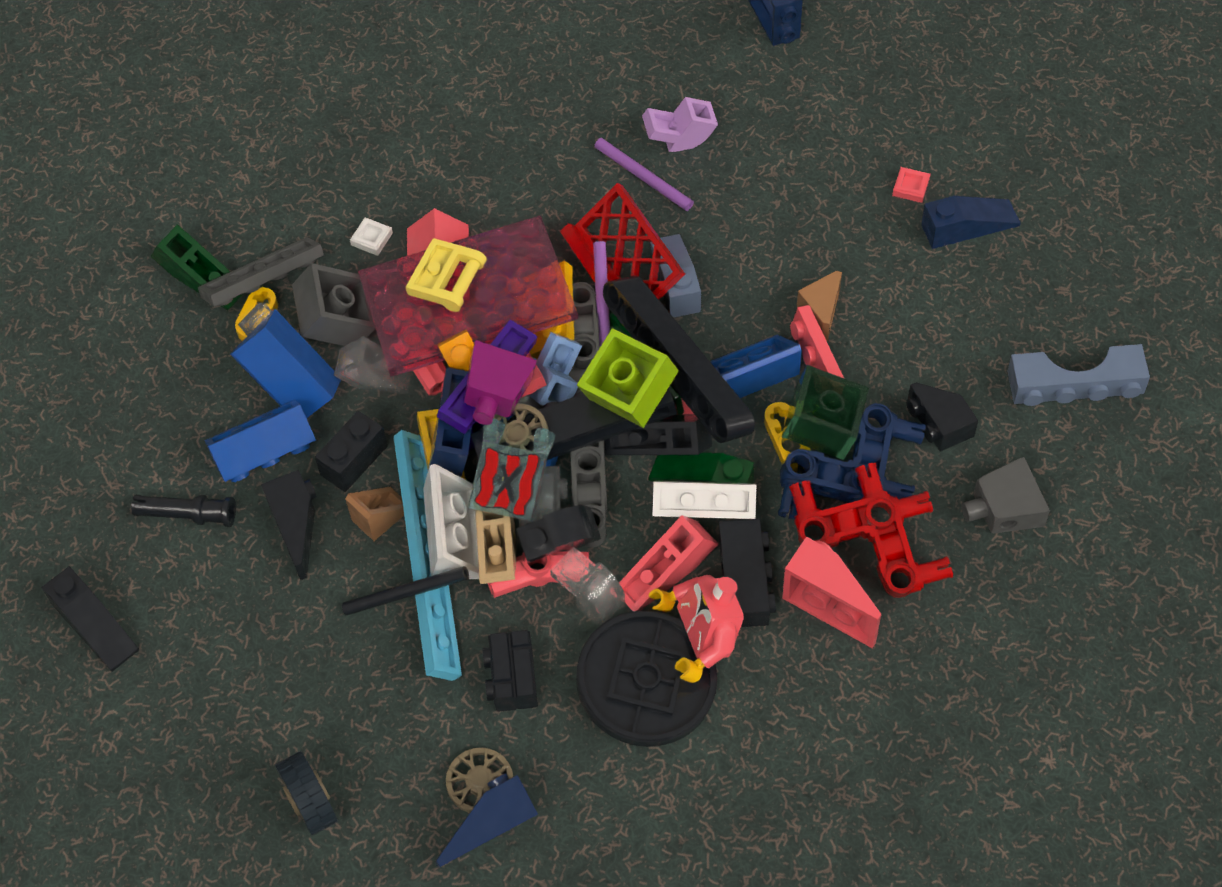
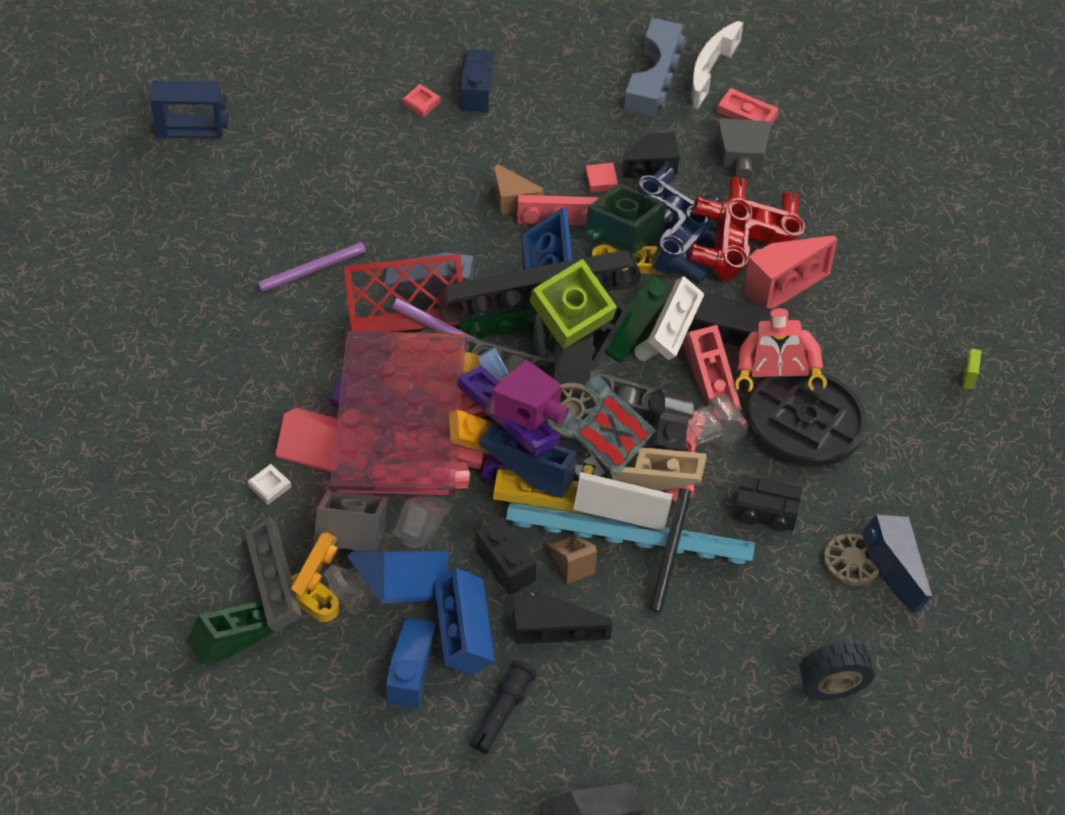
camera: 75 degrees left, 5 degrees down
(205, 414) = (410, 663): none -> blue slope
(267, 290) = (309, 575): none -> light orange plate
(438, 267) = (379, 417): light yellow plate -> none
(684, 128) = (284, 216): lavender brick -> none
(790, 834) = (971, 369): none -> lime tile
(891, 379) = (601, 177): none -> coral tile
(1068, 488) = (743, 107): none -> coral plate
(1163, 433) = (722, 43): none -> white slope

